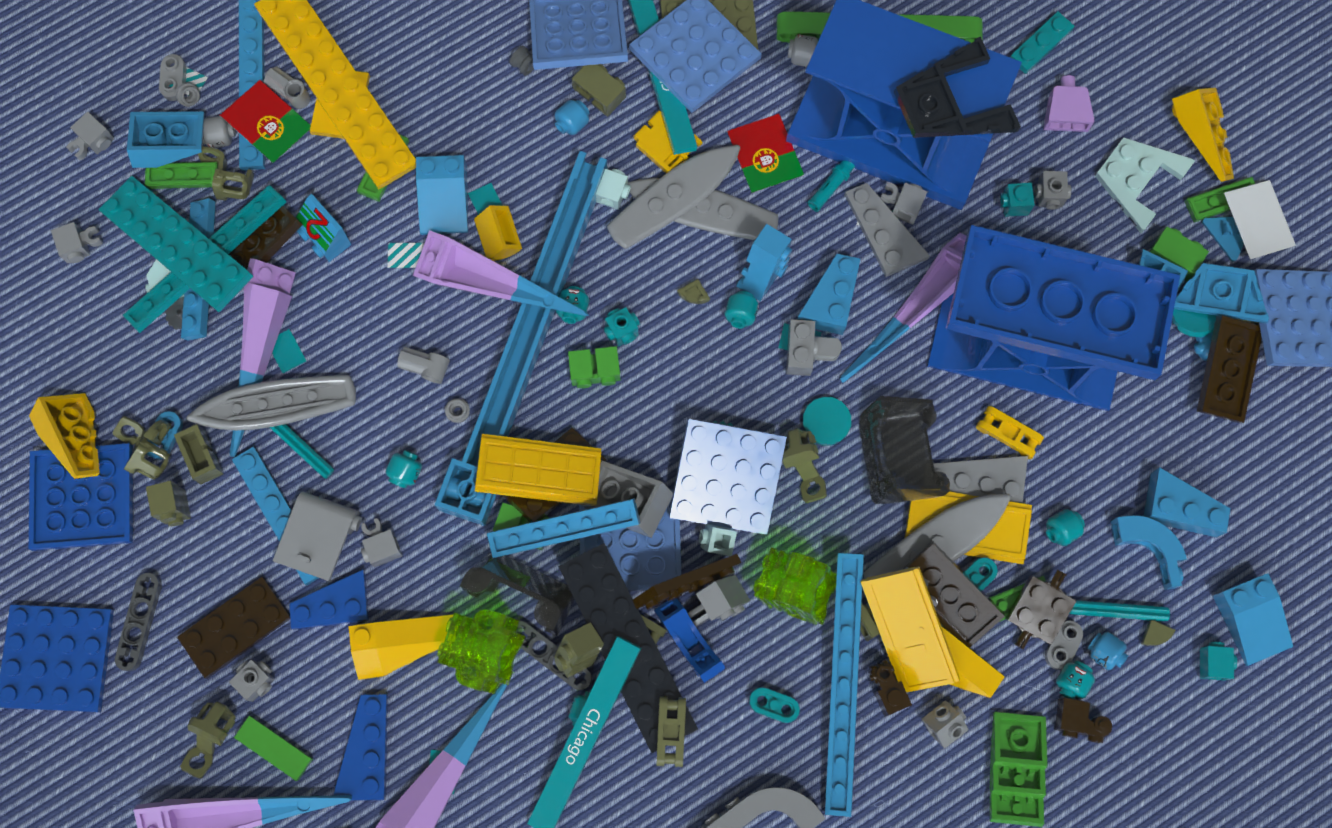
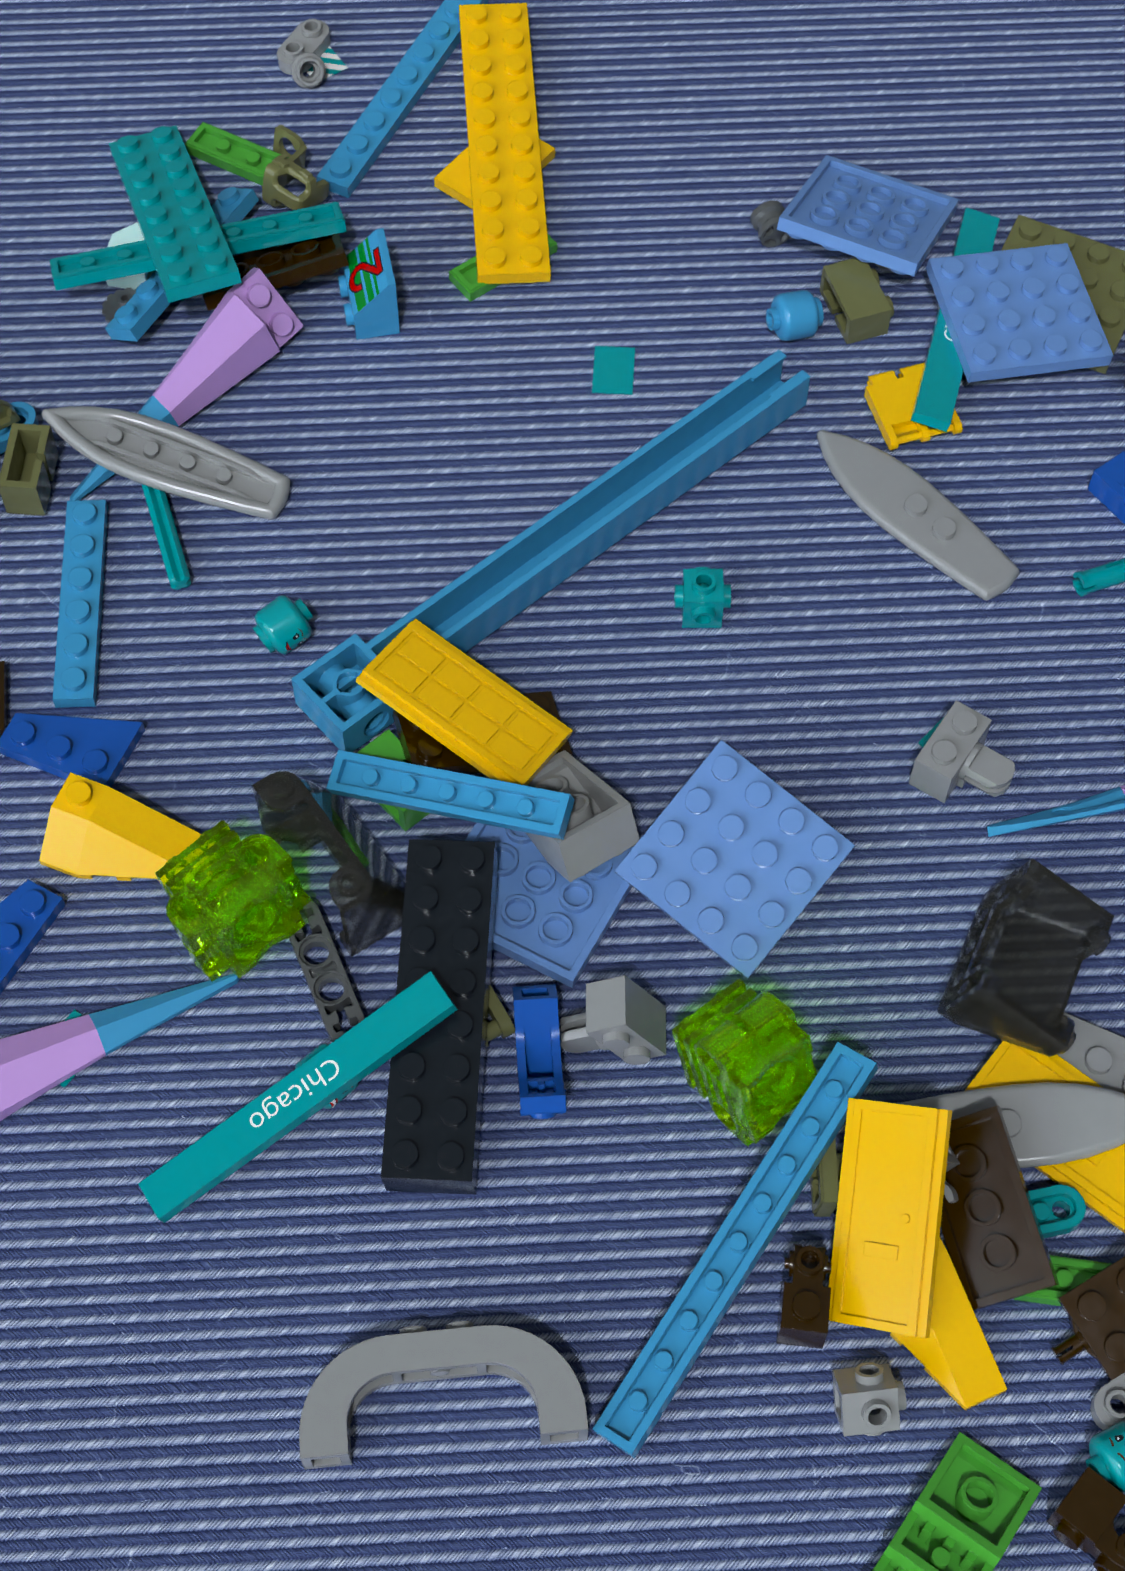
camera: 30 degrees right, 15 degrees down
(72, 242) = (51, 162): light grey brick -> none
(91, 135) = (158, 59): light grey brick -> none
(163, 137) = (241, 94): dark azure slope -> none
(217, 132) = (316, 125): light grey head -> none
(266, 121) = (385, 141): sticker -> none
(287, 87) = (440, 118): light grey piece -> none
(287, 352) = (229, 415): teal sticker -> none
(317, 533) = (112, 643): light grey door -> none
(380, 546) = (185, 703): light grey brick -> none
(404, 254) = (464, 379): sticker -> none
(429, 366) = (403, 520): light grey piece -> none
(442, 194) = (559, 325): dark azure slope -> none
(452, 405) = (405, 584): light grey plate -> none
(462, 268) = (526, 418): lavender plate -> none
(497, 232) = (604, 405): yellow brick -> none
(577, 297) = (652, 537): teal head -> none
(578, 650) = (365, 971): olive piece -> none
(594, 368) = (639, 639): bright green piece -> none
(613, 188) = (797, 425): light aqua brick -> none
(671, 731) = (426, 1154): olive plate -> none
(672, 195) = (879, 472): light grey piece -> none
(690, 582) = (578, 955): dark brown plate -> none
(694, 293) = (834, 611): olive tile -> none
(717, 539) = (667, 938): light aqua brick -> none
(741, 309) = (892, 659): teal head -> none
(765, 153) = (1047, 489): sticker -> none
(767, 261) = (966, 606): dark azure wedge -> none
(774, 704) = (614, 1224): teal plate -> none
(800, 456) = (861, 884): olive piece -> none
(827, 420) = (932, 873): teal tile -> none
(833, 296) = (1040, 707): dark azure wedge -> none

